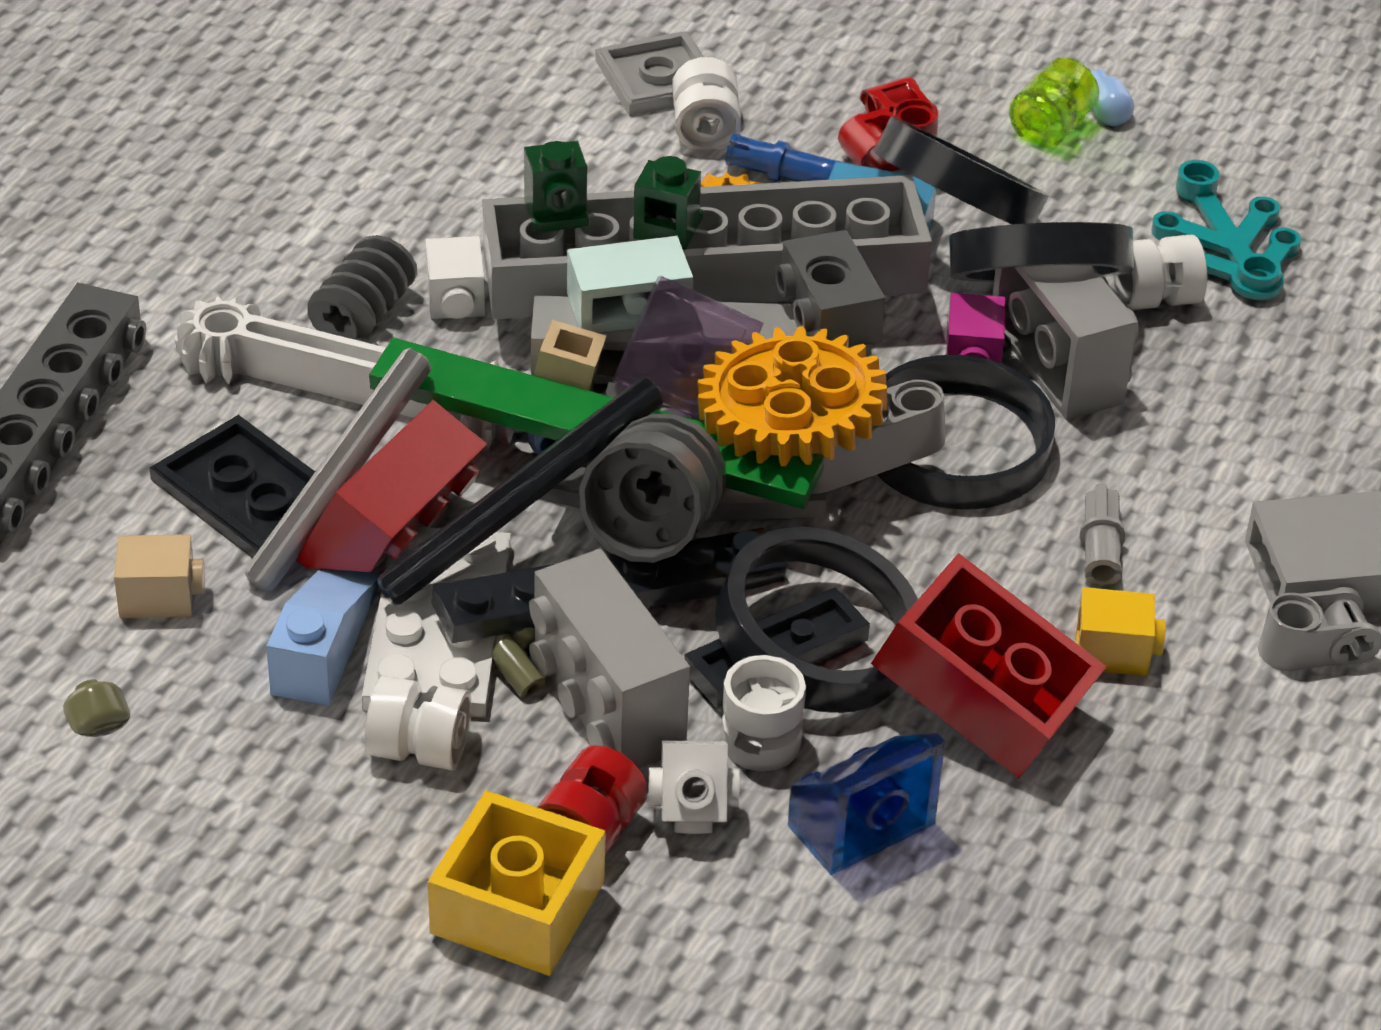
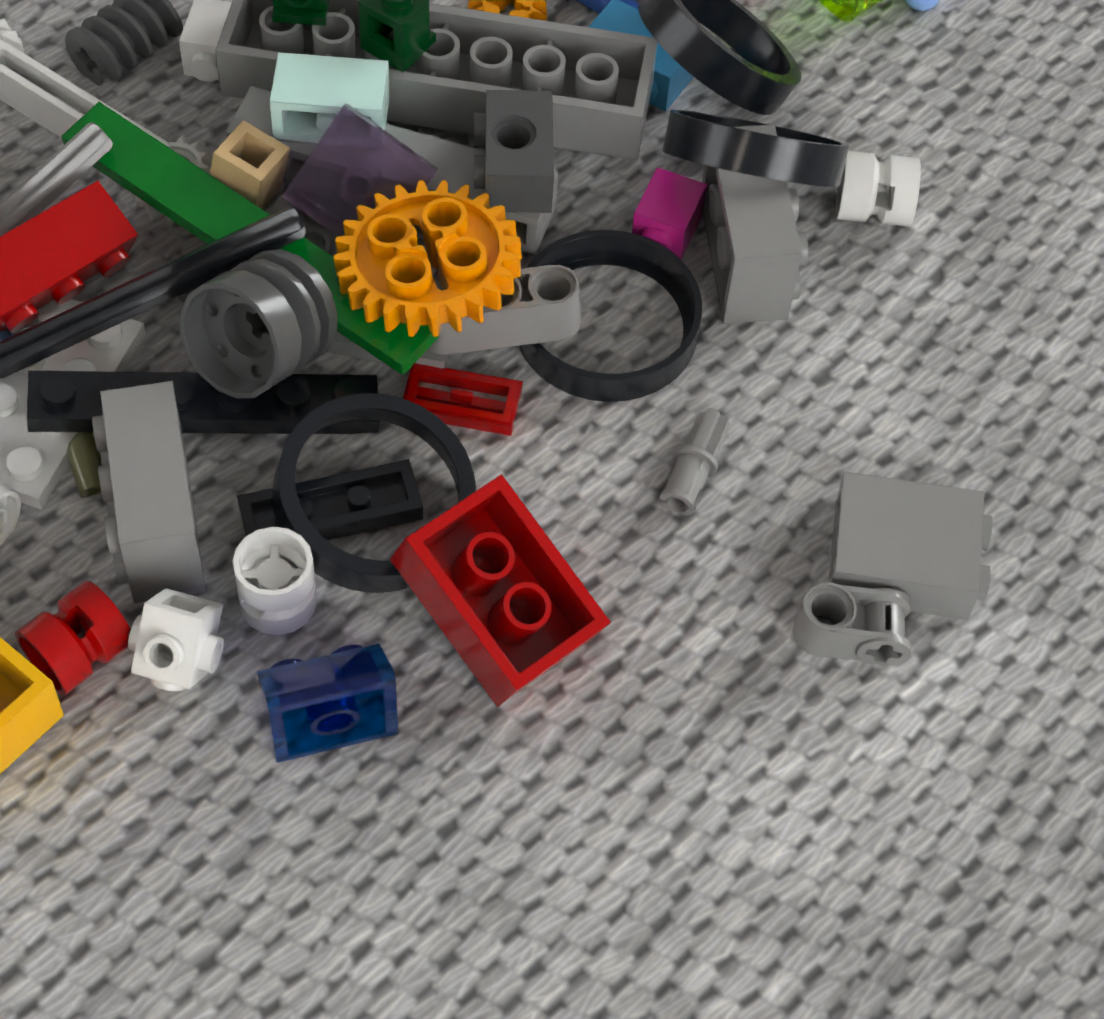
camera: 15 degrees right, 15 degrees up
(852, 519) = (460, 406): none -> red tile
(1120, 629) = (655, 576): yellow brick -> none
(1250, 274) = (966, 96): teal plant -> none

